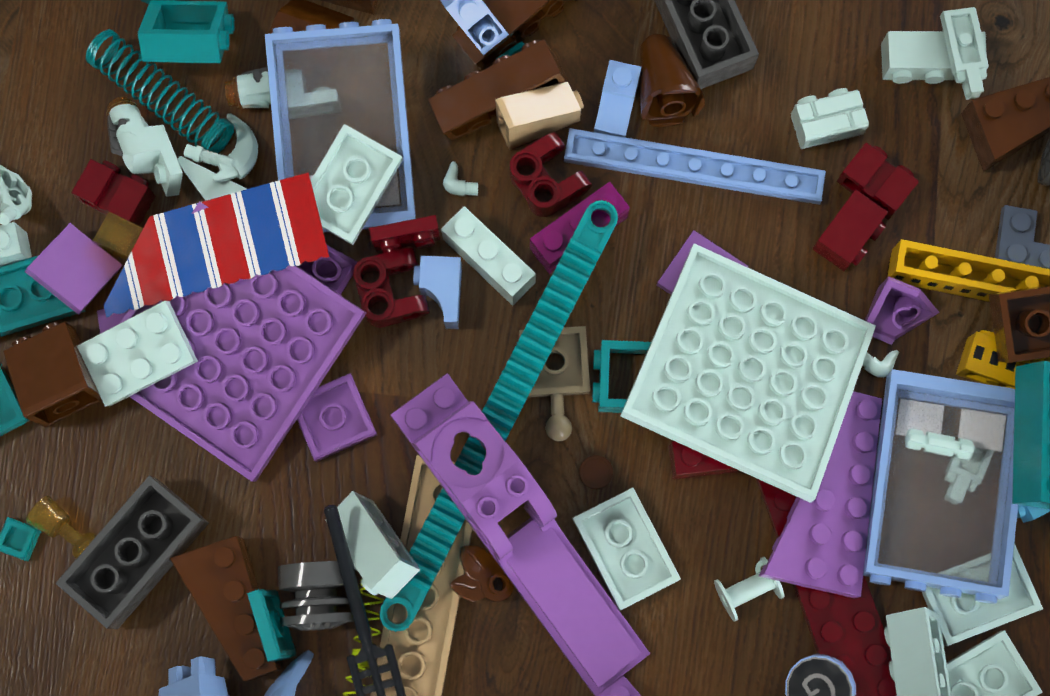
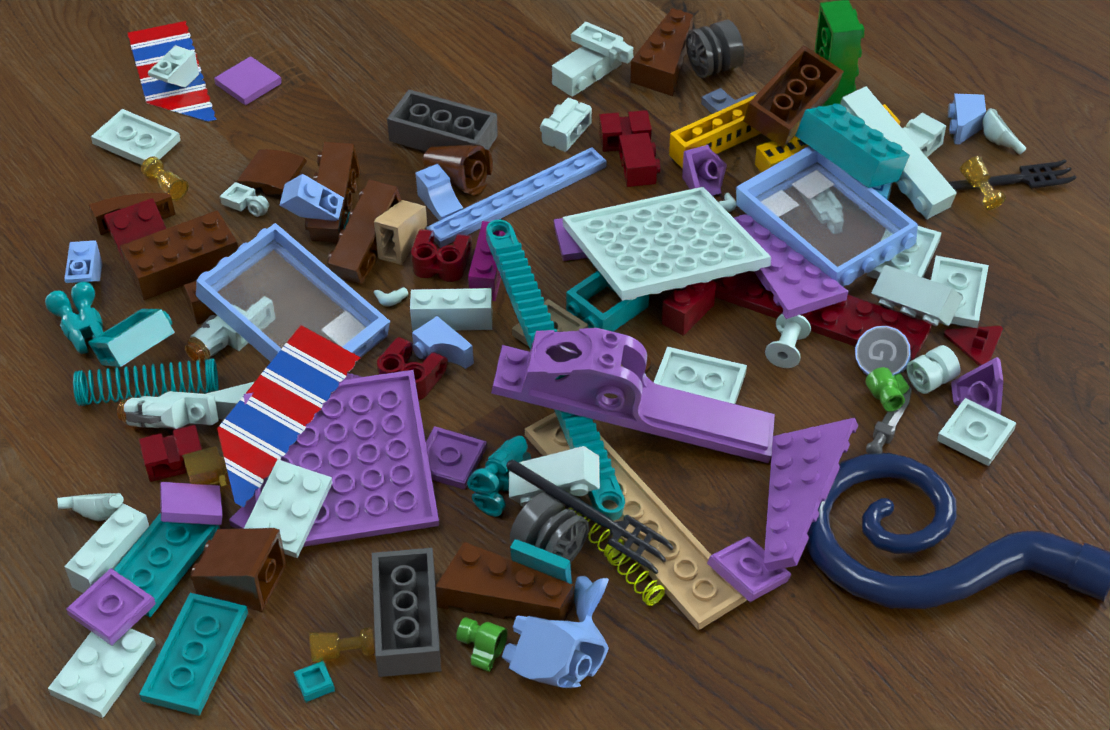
camera: 45 degrees left, 30 degrees down
(175, 640) = (487, 639): none -> bright green piece
(238, 162) = (238, 376): light aqua piece -> none
(352, 182) = (332, 316): light aqua plate -> none
(366, 479) = (495, 476): none -> teal piece
(417, 232) = (390, 325): dark red plate -> none
(479, 575) = (637, 452): reddish brown plate -> none
(939, 444) = (800, 196): light aqua axle -> none

